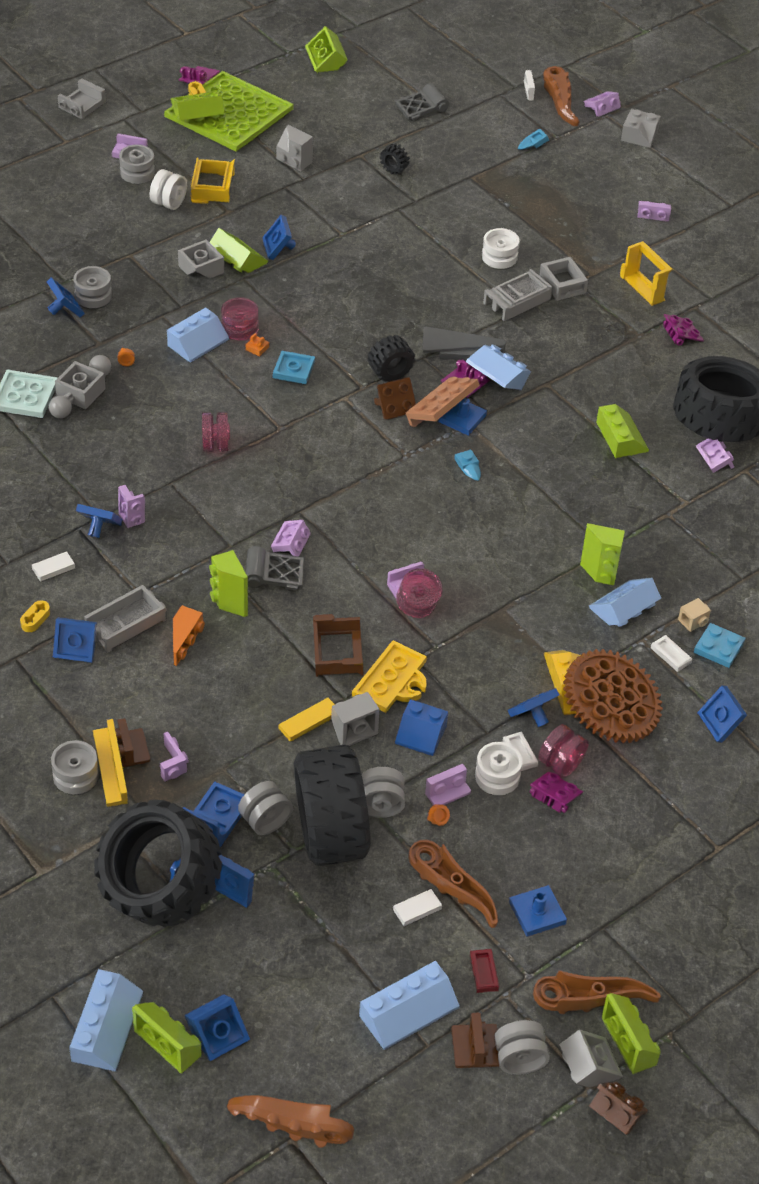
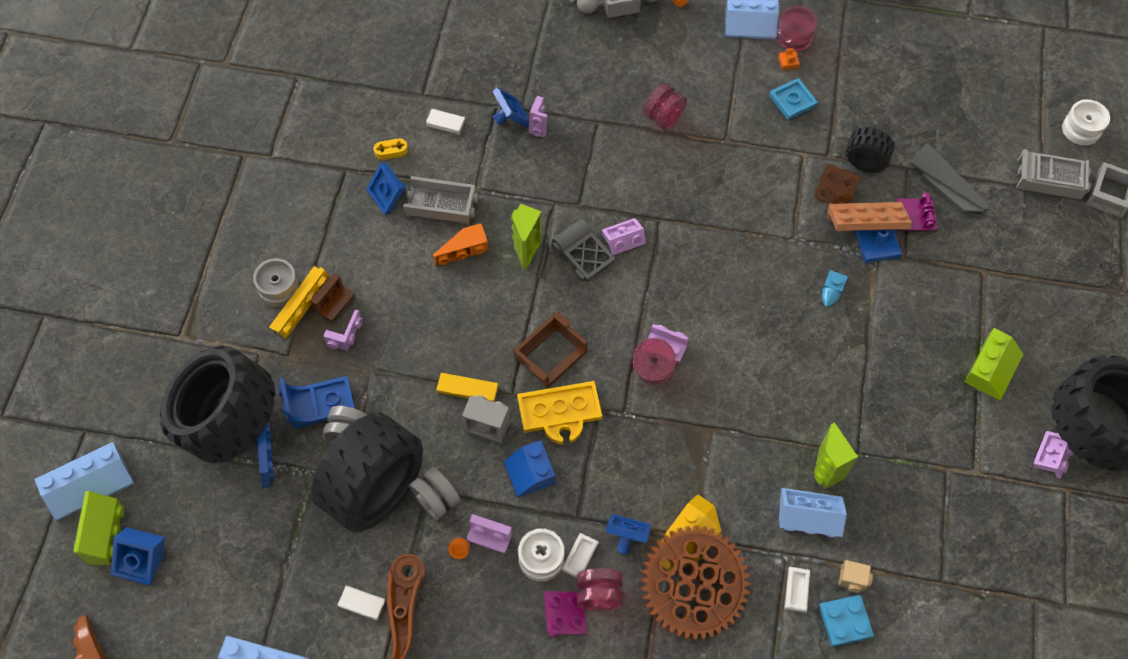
camera: 50 degrees right, 15 degrees up
(500, 367) = (952, 226): light blue slope -> none

